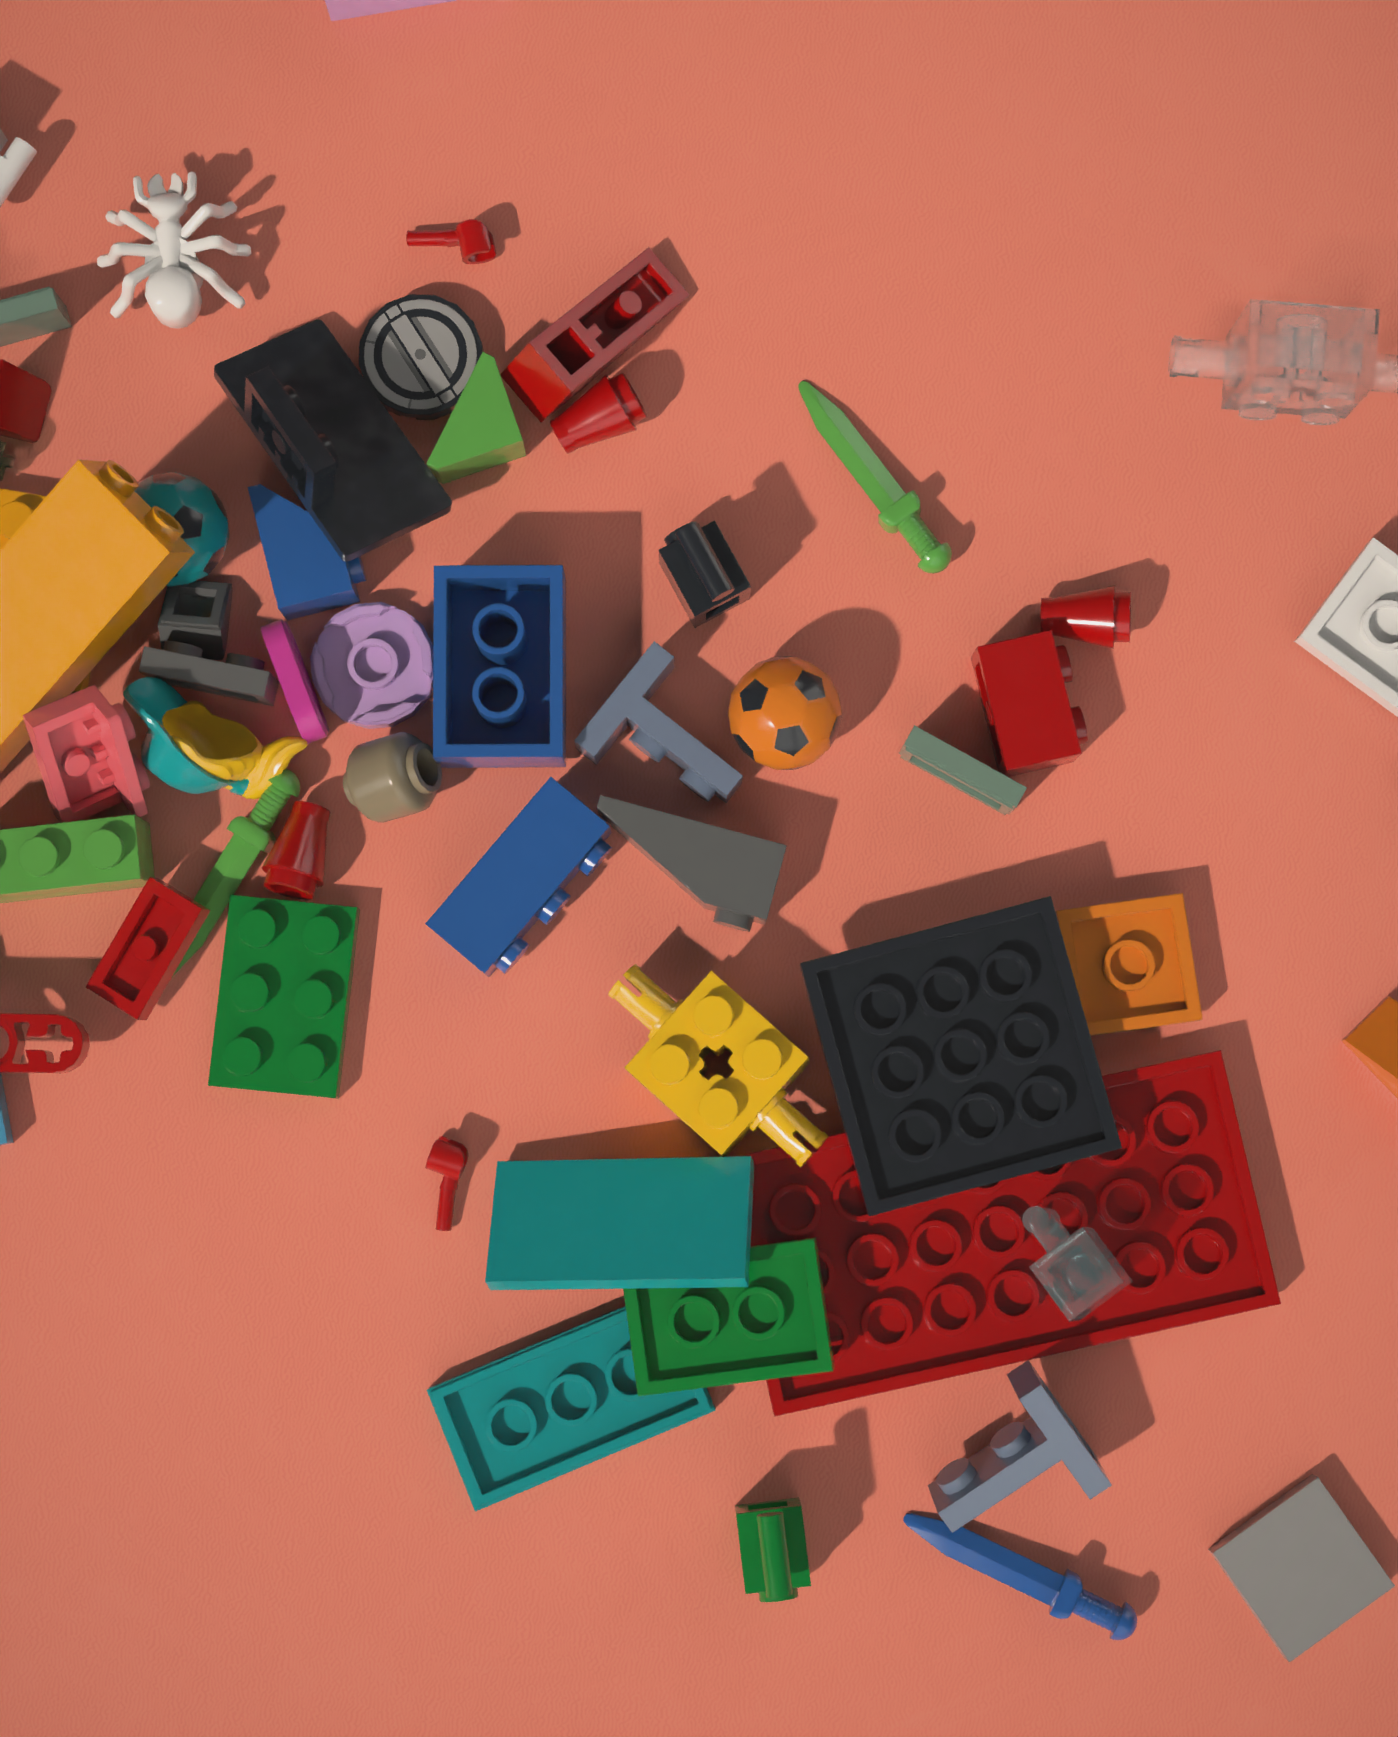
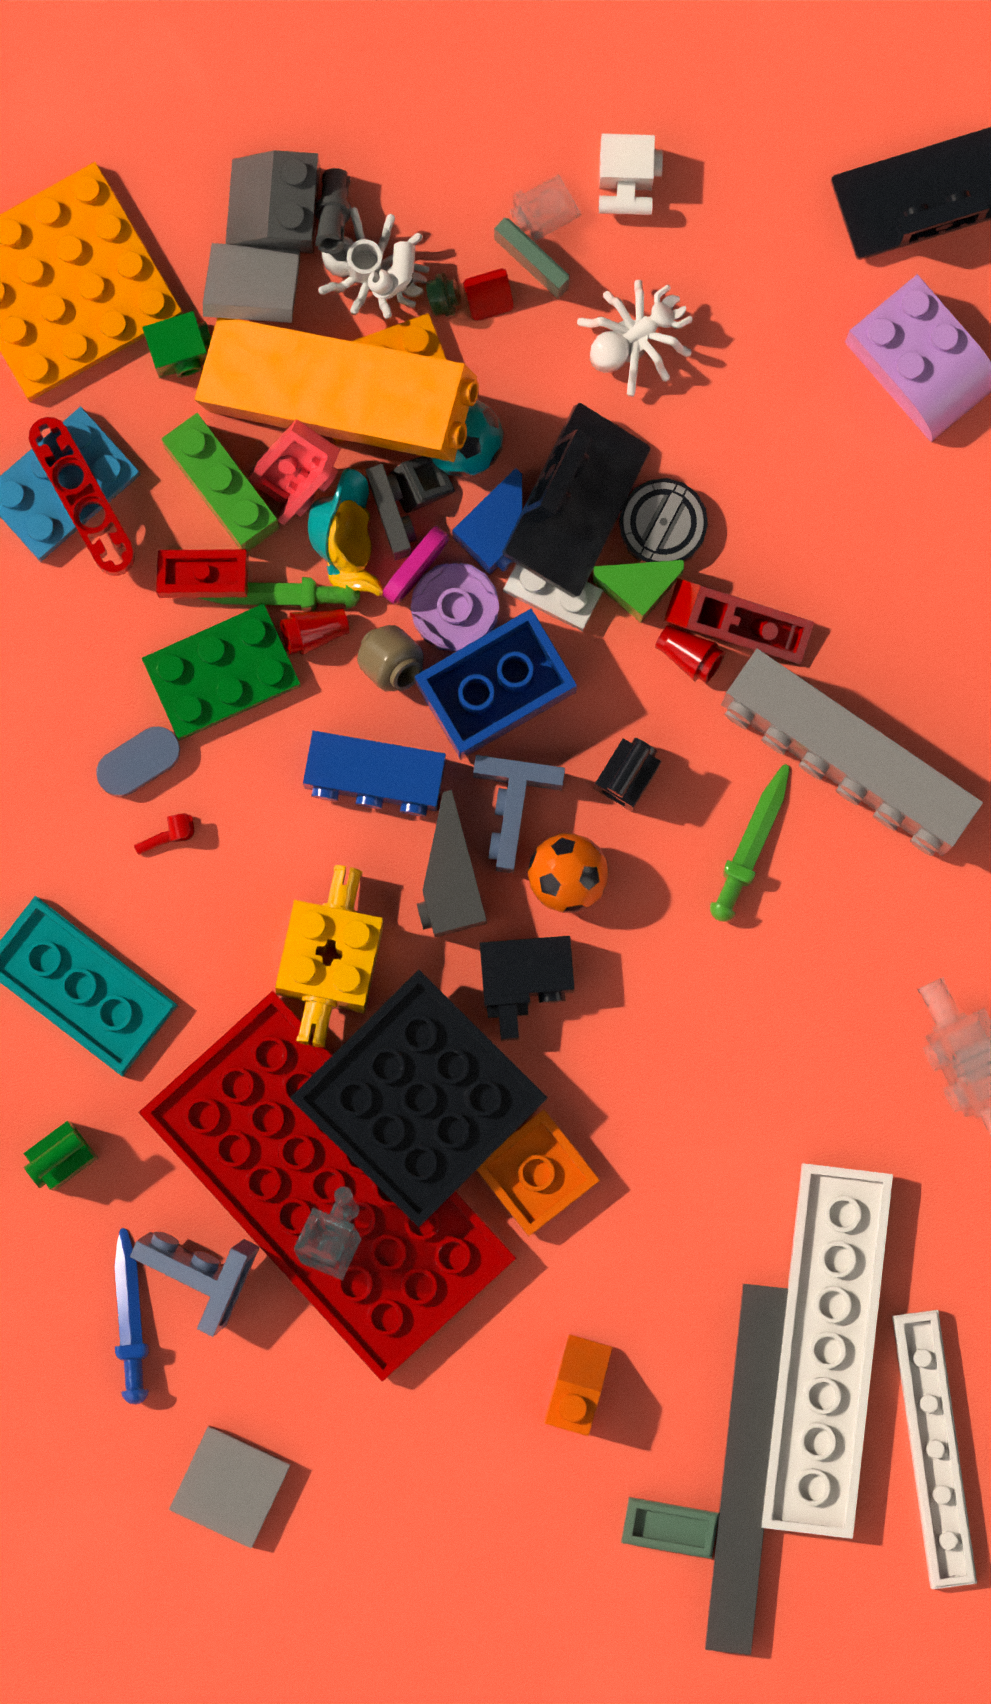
camera: 60 degrees right, 0 degrees up
(334, 1163) = (138, 761): none -> sand blue tile
(433, 544) = (552, 601): none -> white plate
(471, 235) = (755, 511): red hand -> none
(621, 1223) = (200, 952): teal tile -> none
(734, 1333) = (181, 1048): green plate -> none
(839, 289) = (850, 754): none -> light grey brick
(868, 842) = (520, 970): none -> black hinge
(962, 771) = (597, 1002): sand green tile -> none
(1028, 703) = (662, 1019): red brick -> none
(1089, 616) = (740, 1027): red cone -> none

